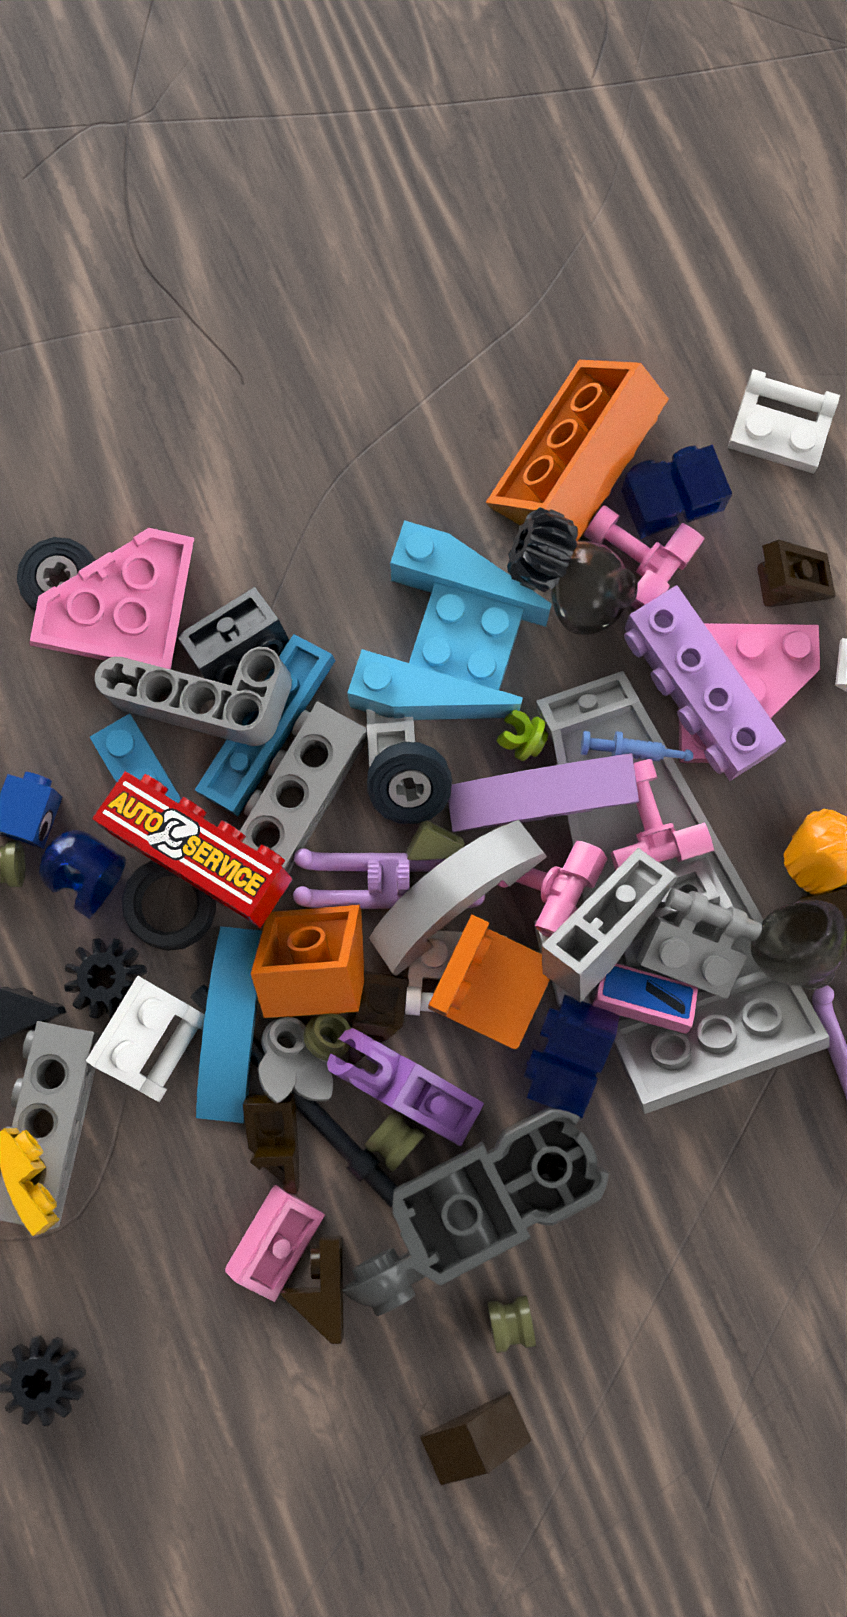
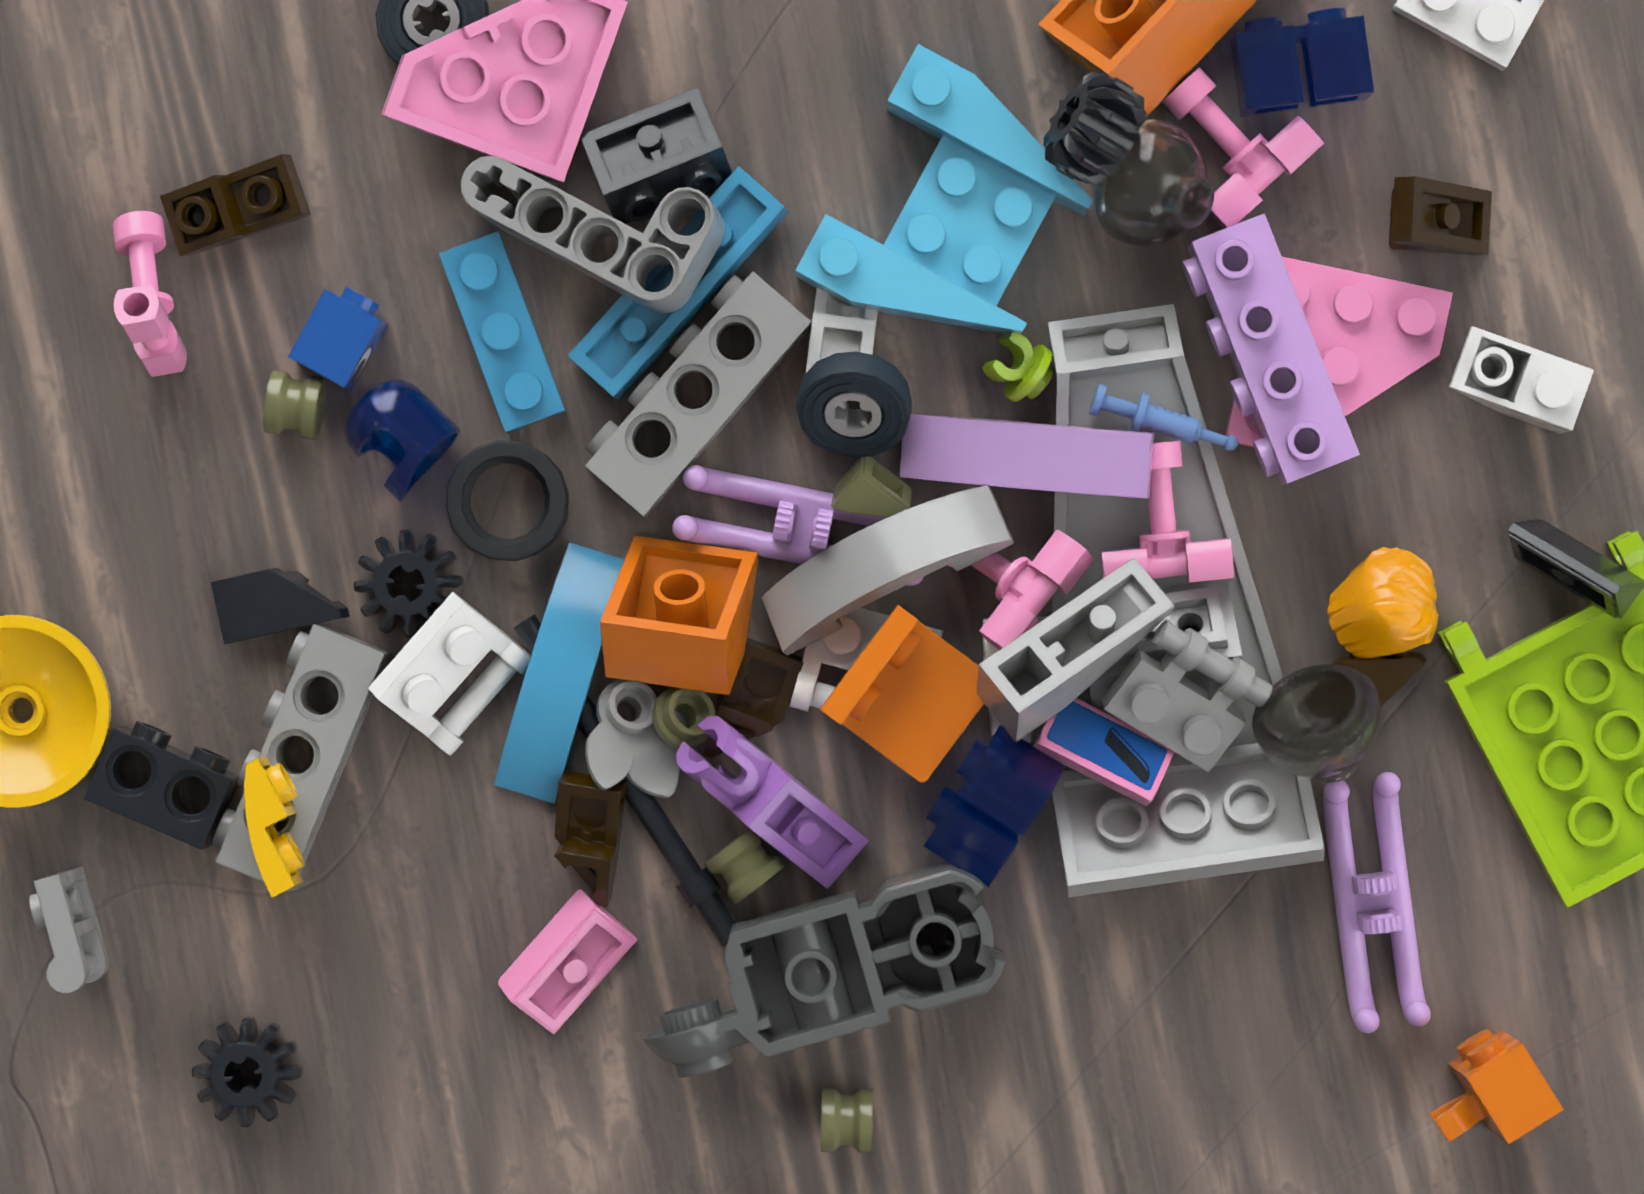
camera: 10 degrees right, 10 degrees up
(193, 848) = (553, 442): brick -> none
(323, 1304) = (617, 1049): dark brown slope -> none

